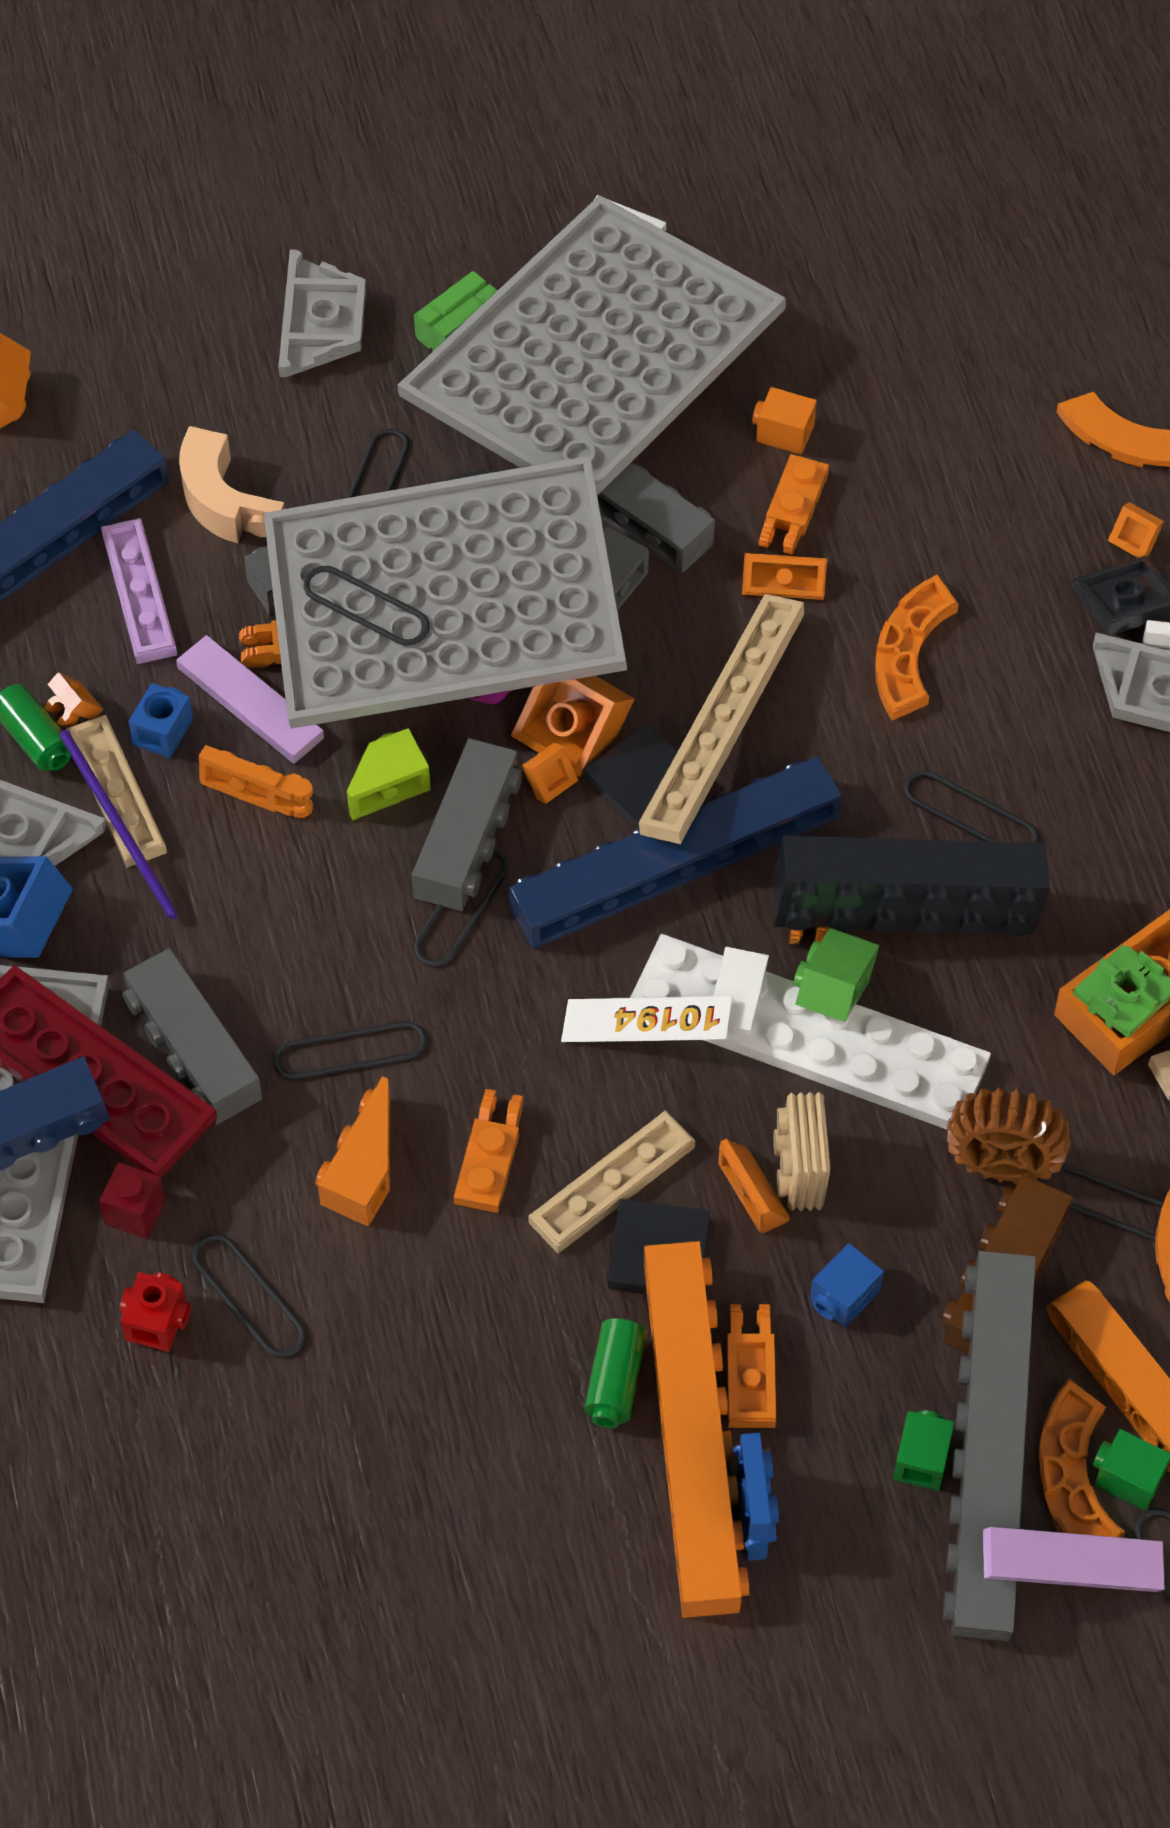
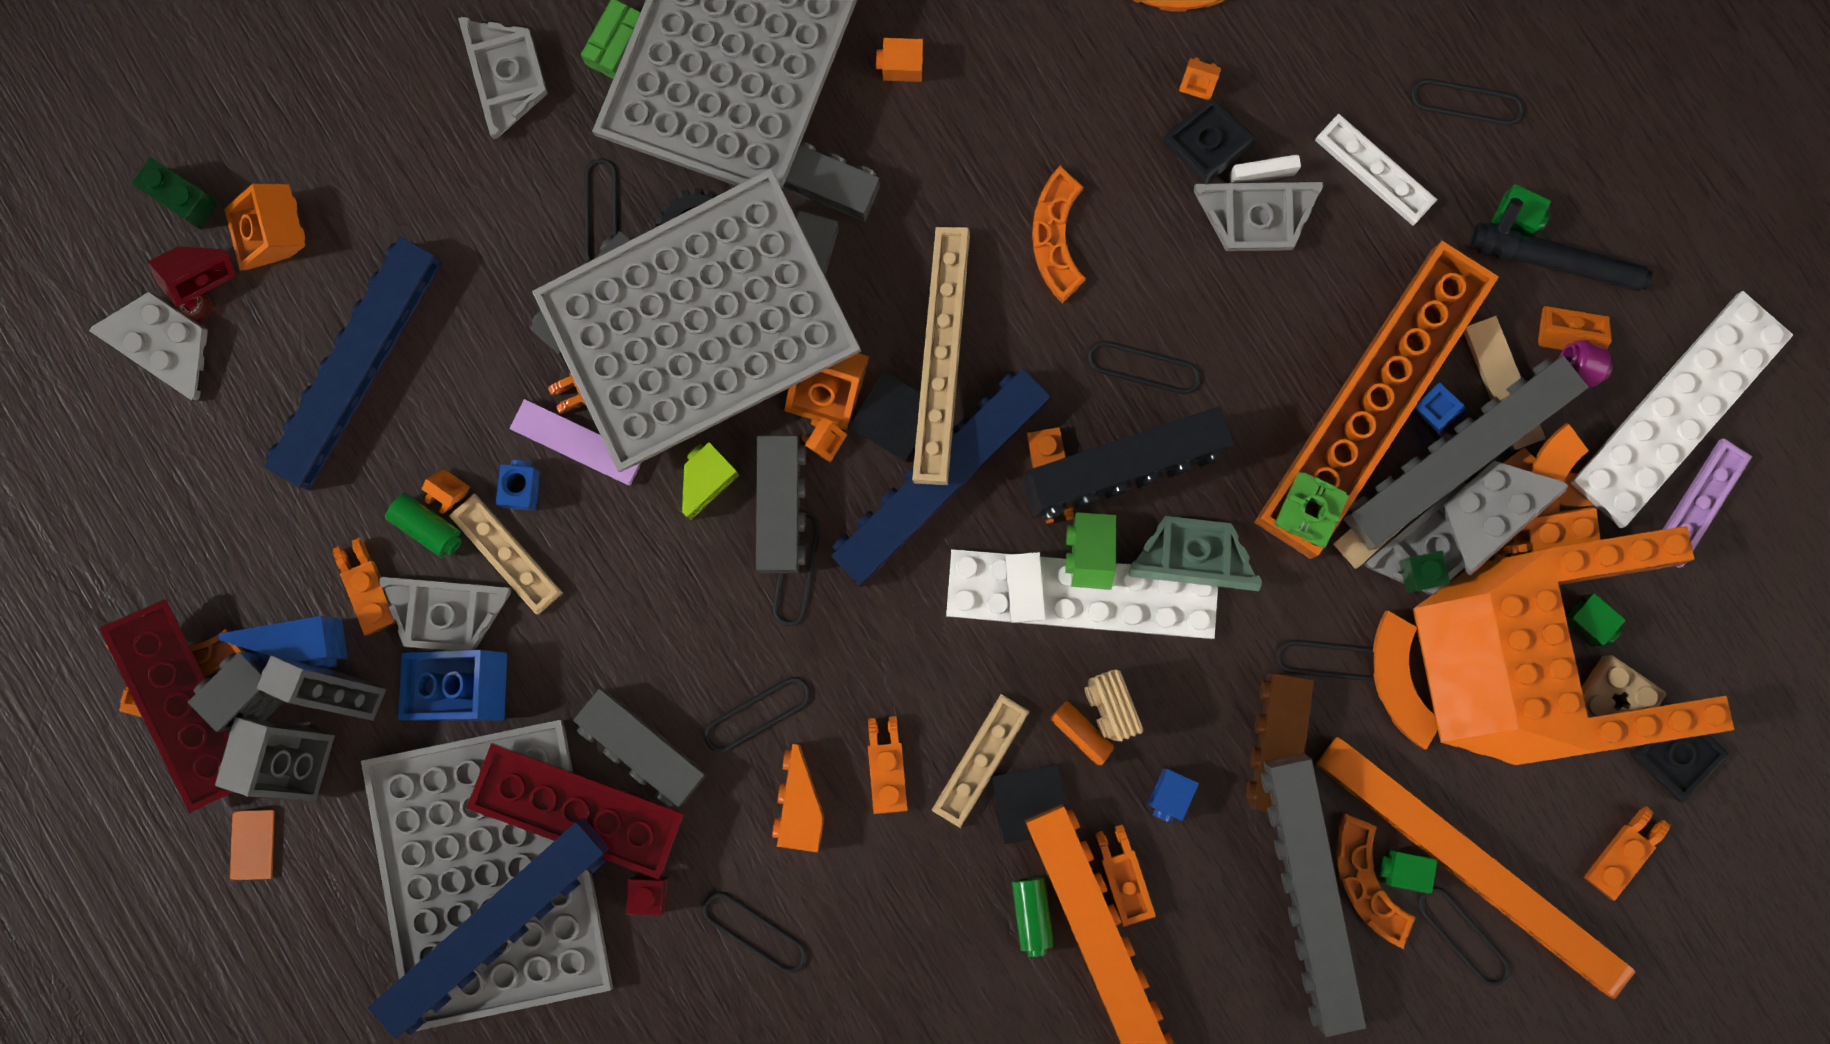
camera: 15 degrees left, 25 degrees up
(118, 824) = (519, 589): dark purple axle -> none
(139, 591) = (456, 372): lavender tile -> none
(154, 1310) = (691, 989): red brick -> none
(210, 500) = (465, 252): light nougat arch -> none
(255, 783) = (611, 518): orange hinge -> none
(350, 615) = (646, 341): black piece -> none
(647, 1019) = (966, 628): white sticker -> none
(757, 1503) = (1168, 997): blue plate -> none
(784, 576) = (944, 201): orange slope -> none
(794, 501) = (930, 129): orange hinge -> none
(923, 1449) = (1263, 903): green brick -> none
(966, 1018) = (1196, 554): none -> sand green wing
(1008, 1135) = (1257, 650): dark orange gear -> none
(1073, 1559) = (1391, 962): lavender tile -> none

